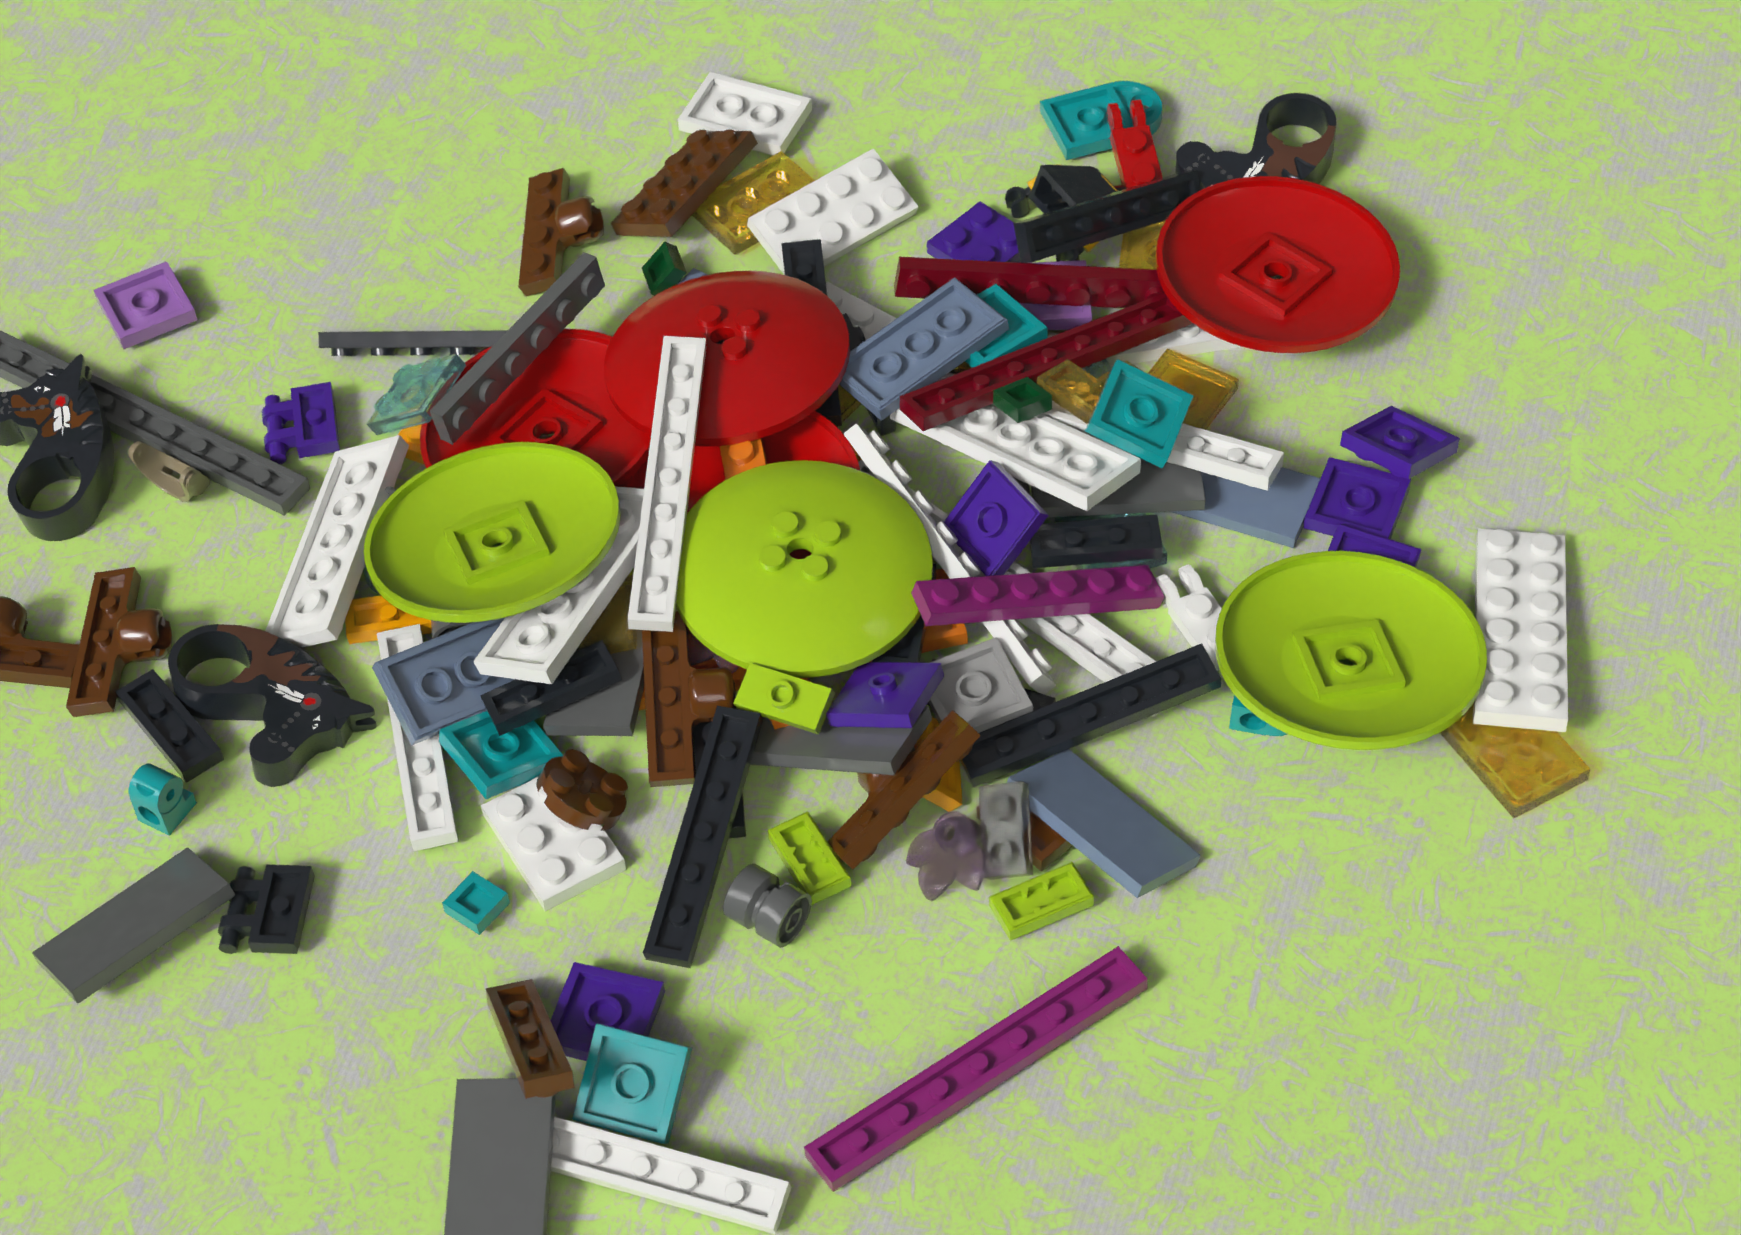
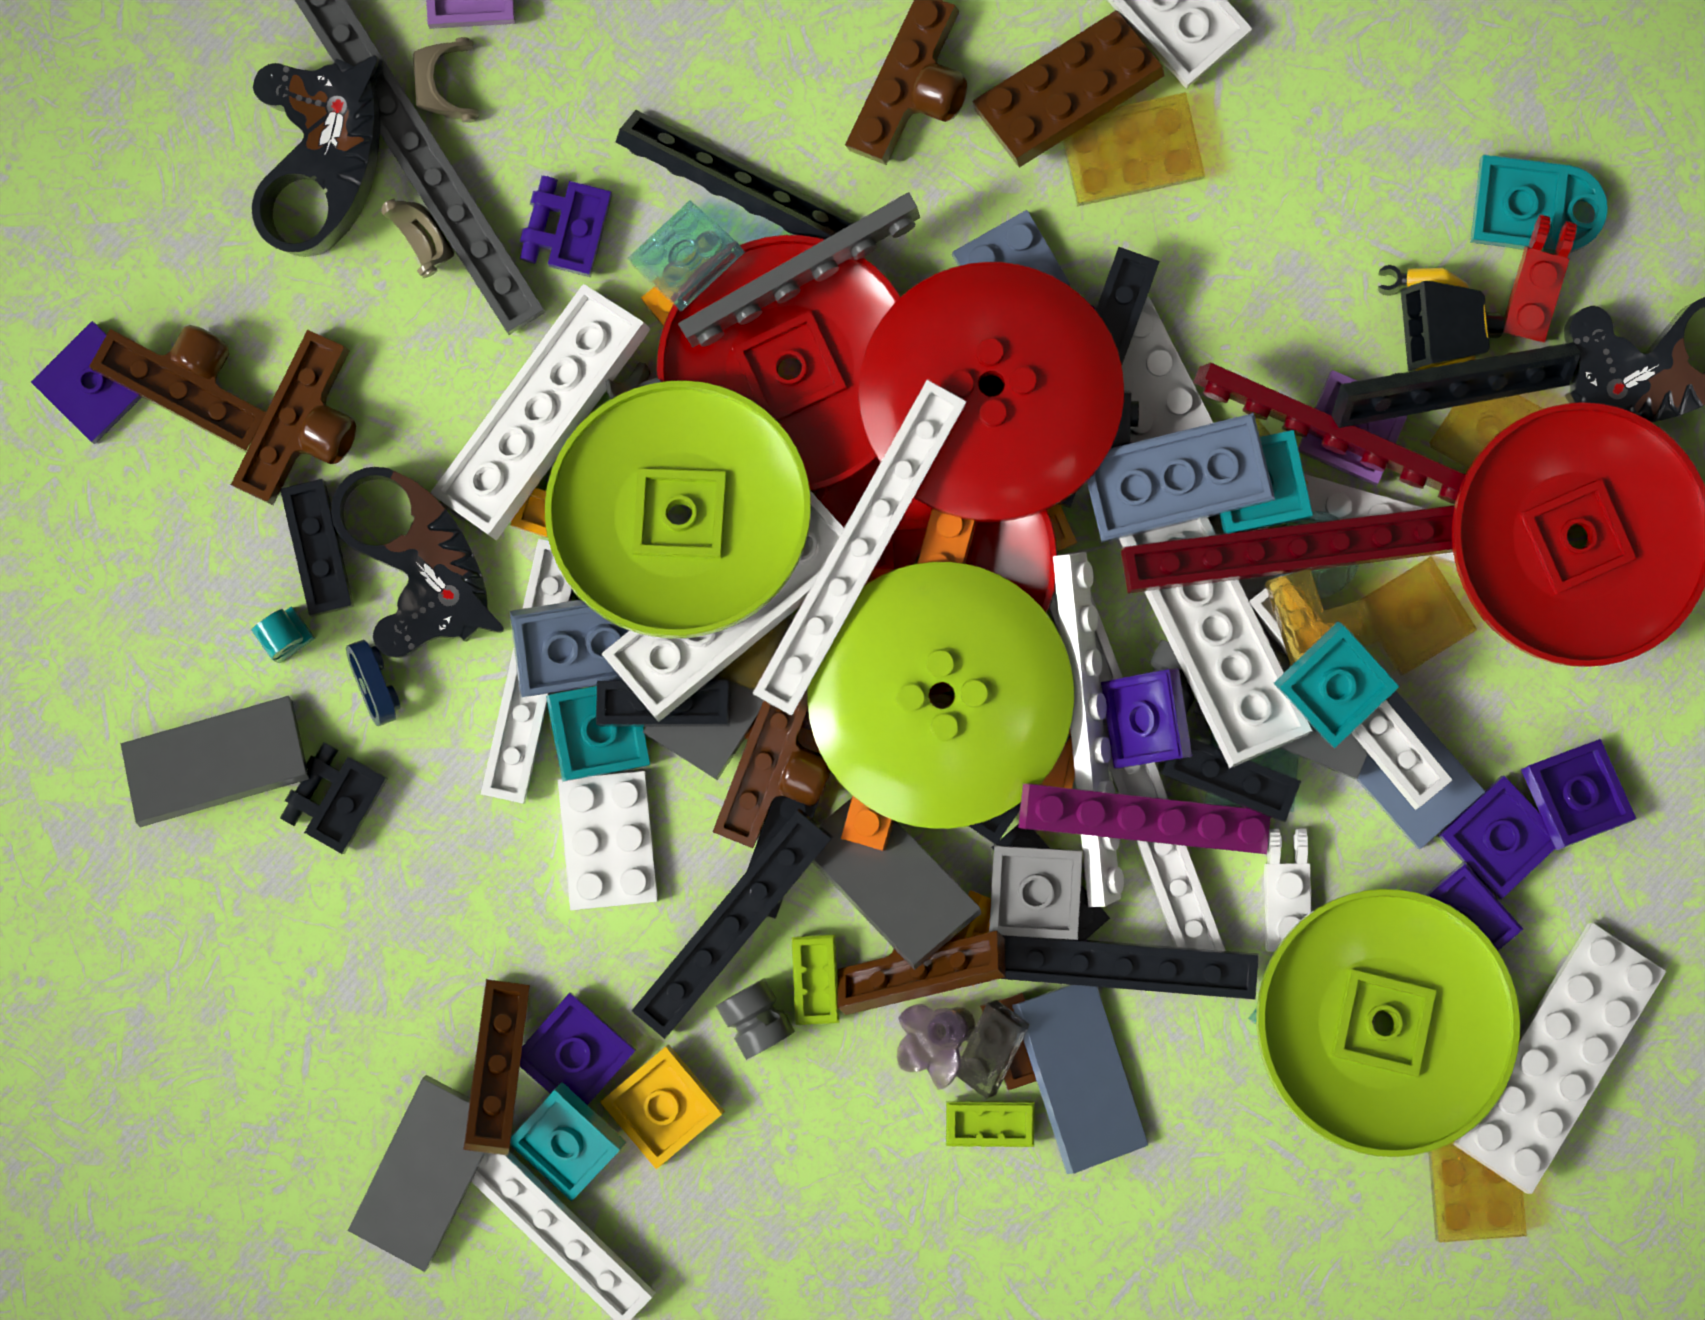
camera: 20 degrees right, 35 degrees up
(142, 383) = (426, 93): none -> dark tan helmet
(265, 801) = (366, 666): none -> dark blue plate
(476, 902) = (513, 883): teal plate -> none
(582, 791) = (669, 817): reddish brown plate -> none
(663, 268) = (995, 200): dark green plate -> none
(718, 1020) = (662, 1106): none -> yellow plate
(784, 698) = (858, 835): lime plate -> none
(839, 209) = (1198, 209): white plate -> none
(885, 695) = (951, 874): dark purple plate -> none
(974, 1068) = (857, 1258): magenta plate -> none
(977, 236) = (1326, 318): dark purple plate -> none
(1022, 399) = (1240, 600): dark green plate -> none

